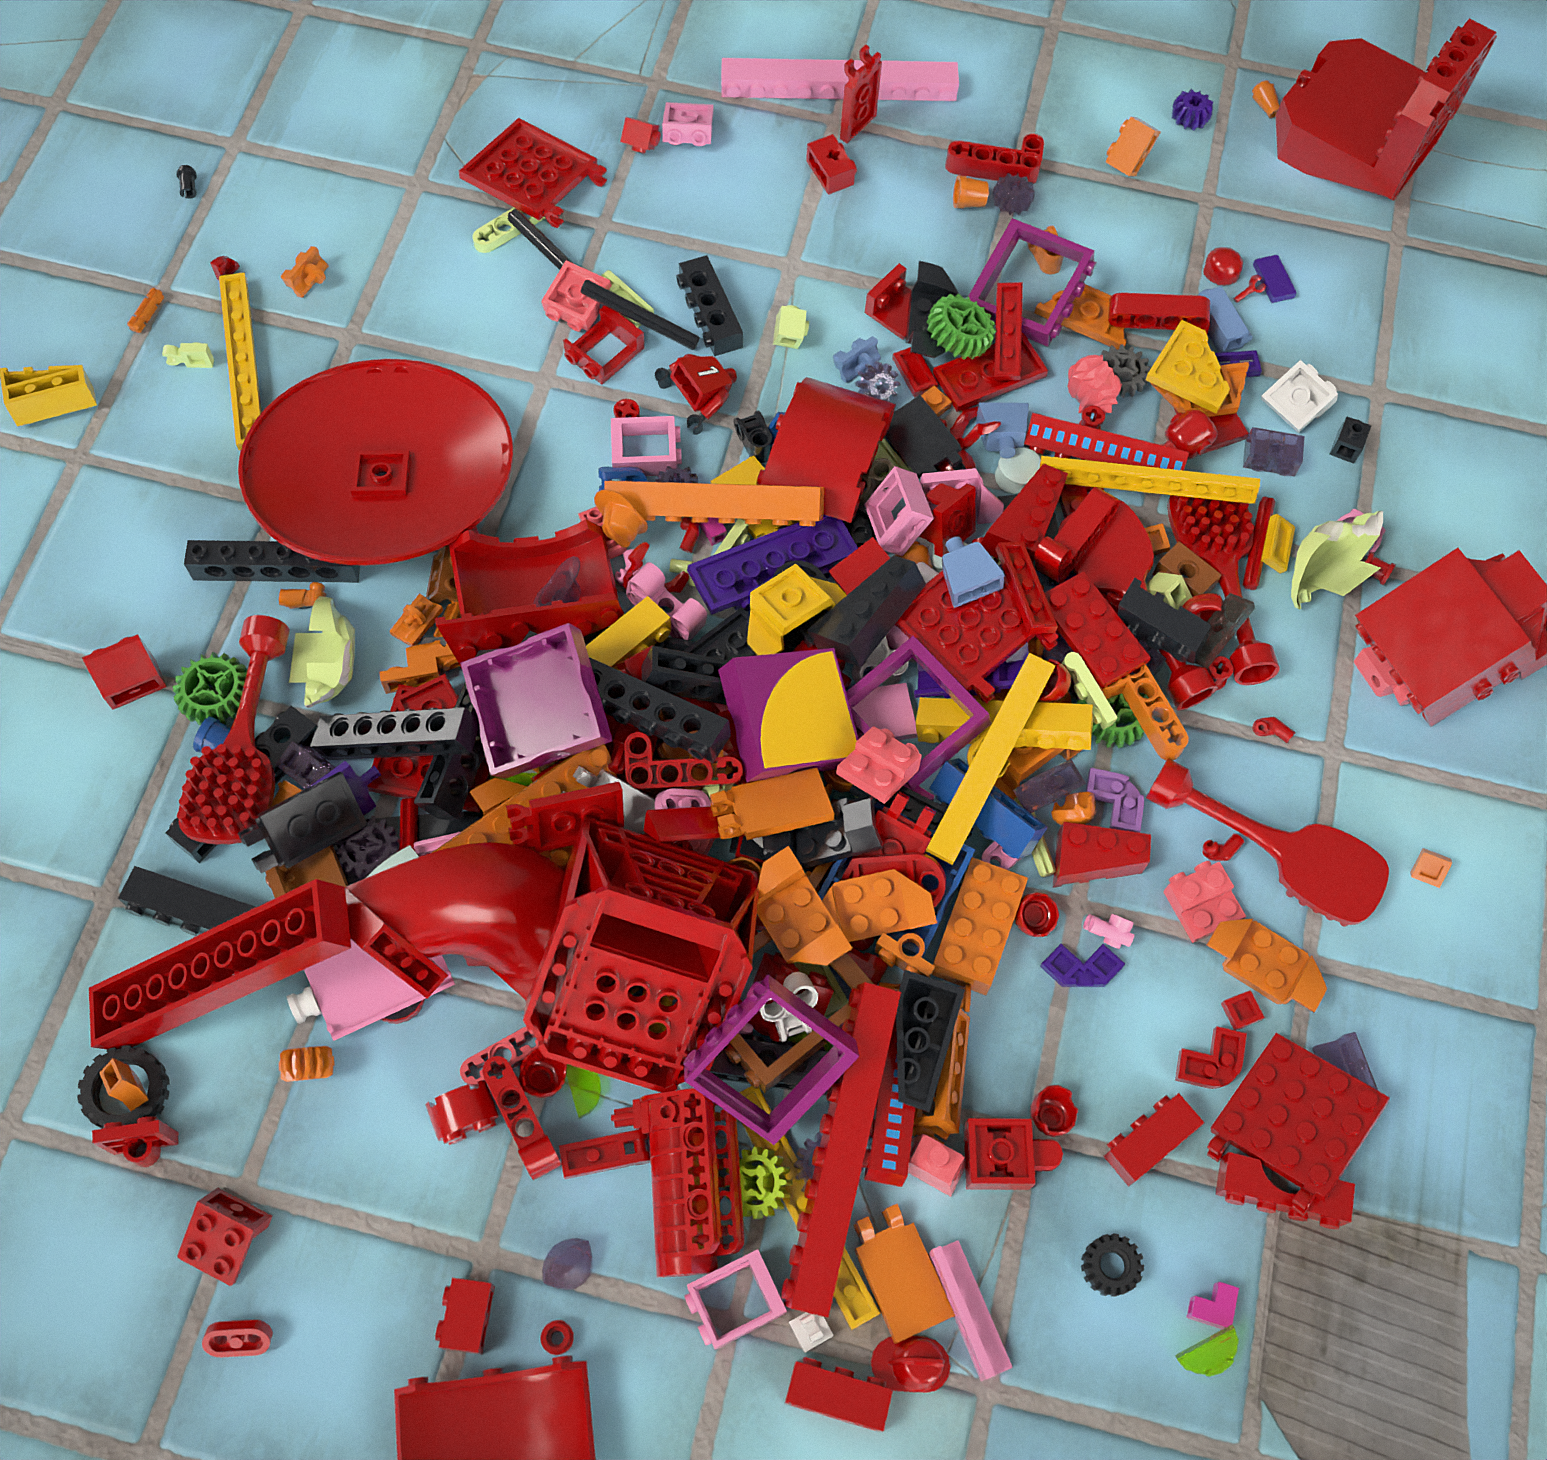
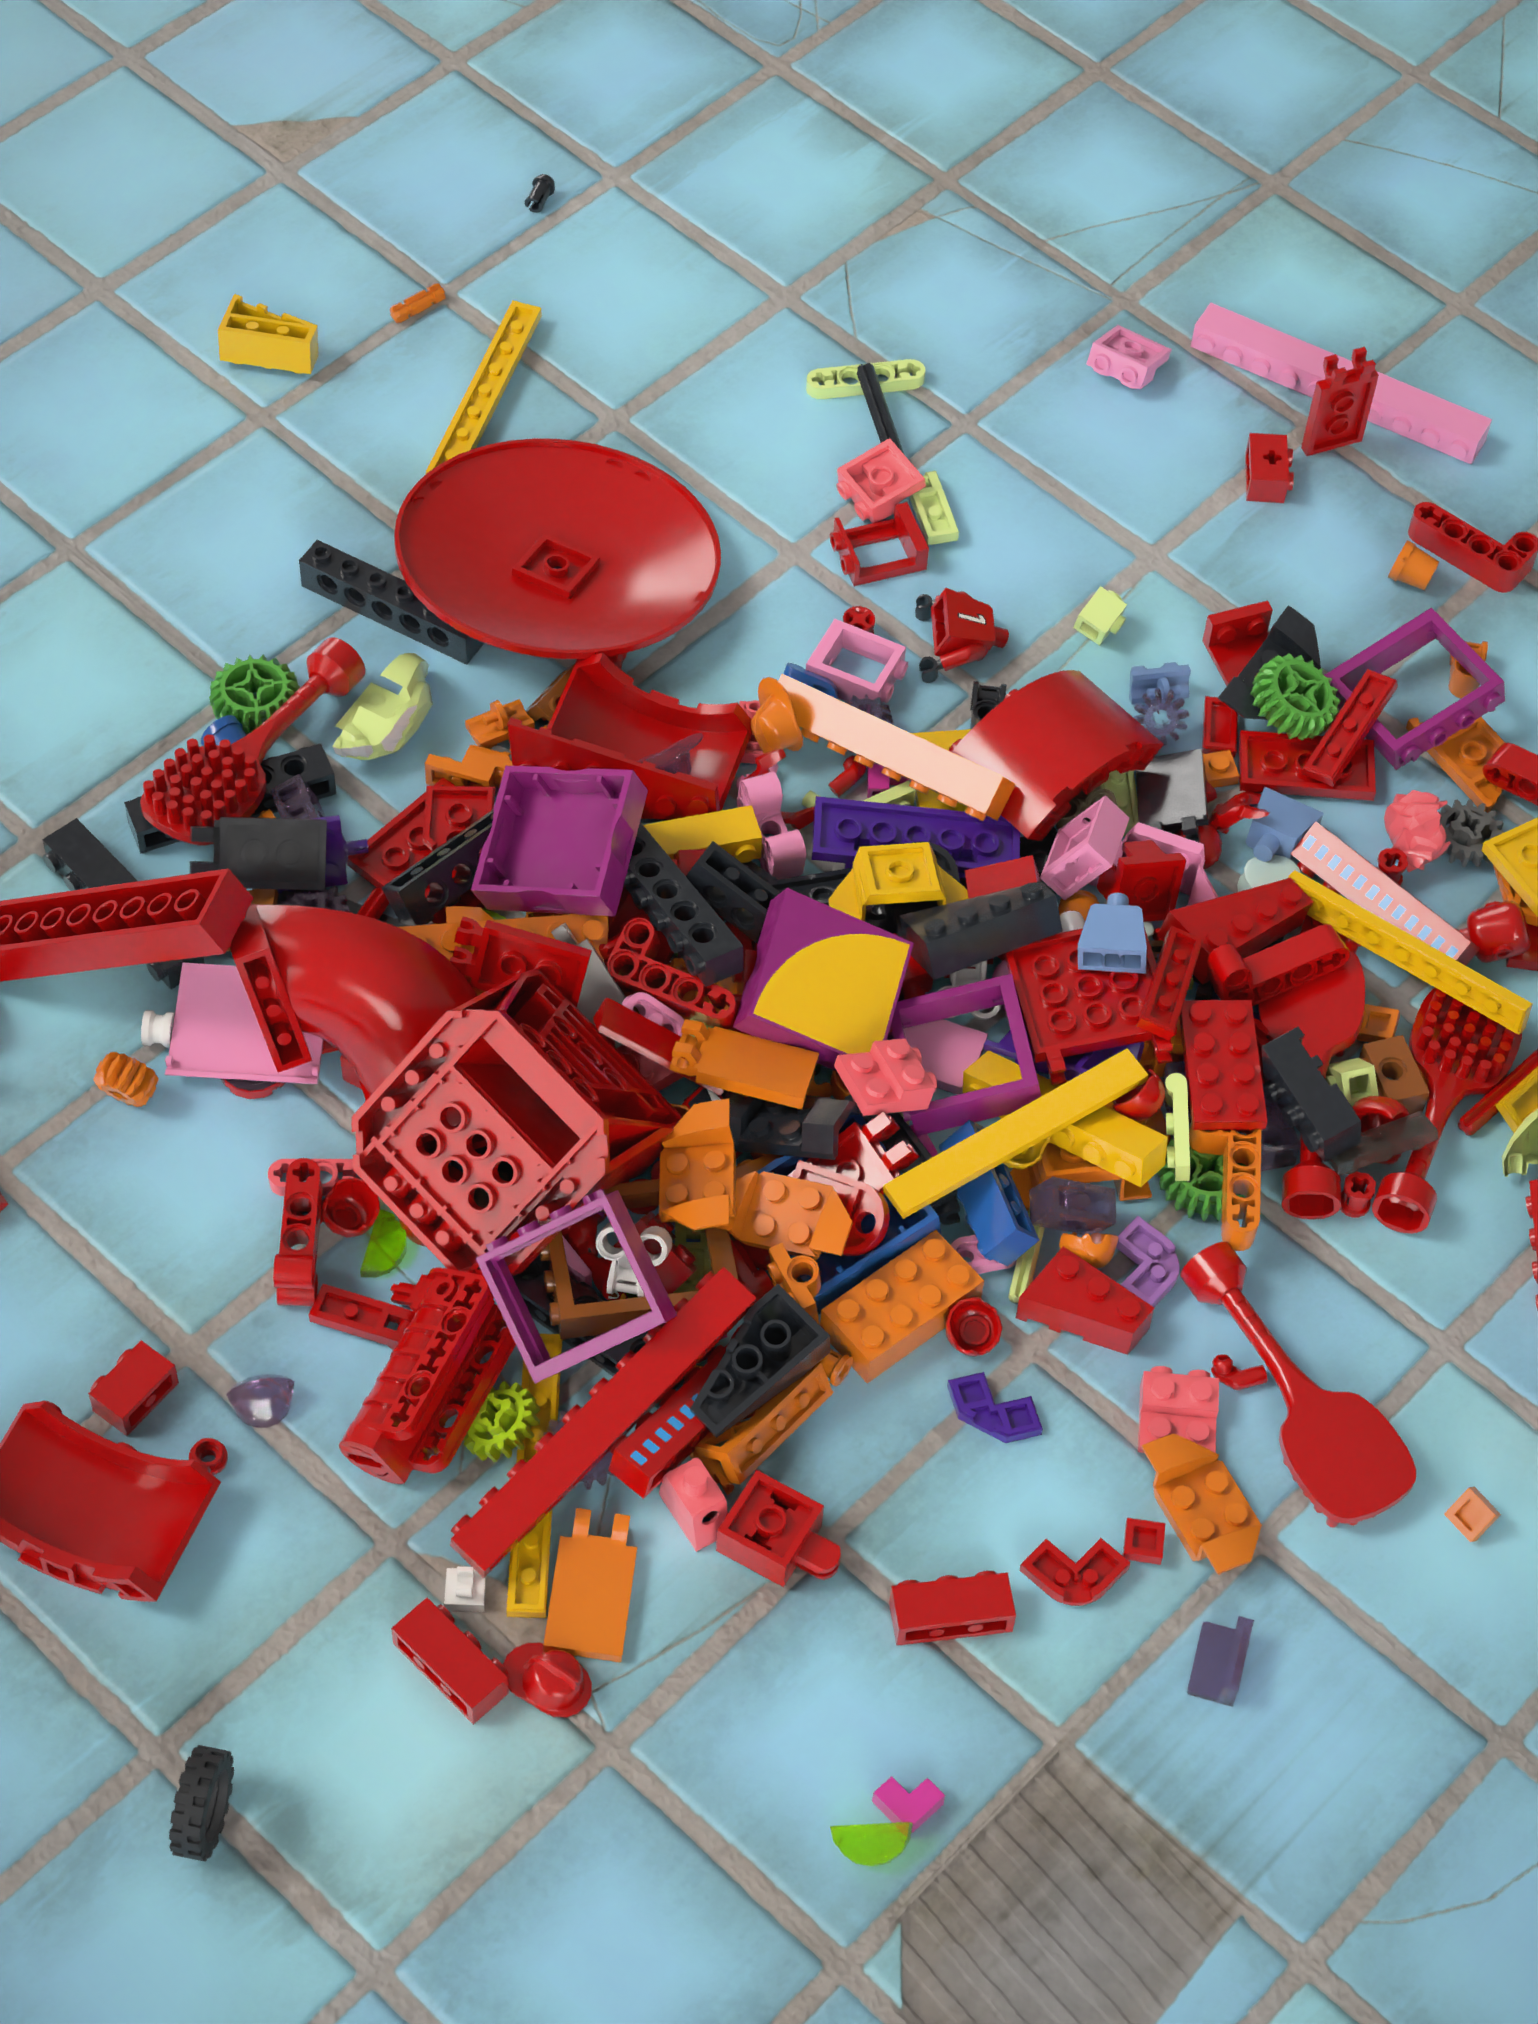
camera: 30 degrees right, 10 degrees down
(124, 671) = (179, 636): red slope -> none
(192, 354) = (437, 366): yellowish green plate -> none
(224, 266) = (525, 292): red tile -> none
(301, 597) = (392, 647): orange arm -> none
(306, 272) = (606, 334): orange hips -> none
(396, 734) = (405, 814): black brick -> none
(462, 1112) = (246, 1200): red brick -> none
(531, 170) = (916, 332): red plate -> none
(639, 314) = (937, 529): black axle -> none
(640, 134) = (1064, 345): brick -> none
(710, 306) = (1026, 556): black brick -> none
(764, 1283) = (404, 1486): bright pink window -> none
(970, 1310) = (640, 1661): bright pink fence -> none
(1013, 194) = (1466, 590): clear purple gear -> none
(1054, 1111) = (860, 1521): red hair -> none
(1115, 931) = (1052, 1389): bright pink plate -> none
(1130, 1258) = (827, 1680): black tyre -> none
(1244, 1180) = (1101, 1768): red arch -> none
(1272, 726) = (1387, 1282): red arm -> none
(1298, 1118) = (1126, 1670): red plate -> none

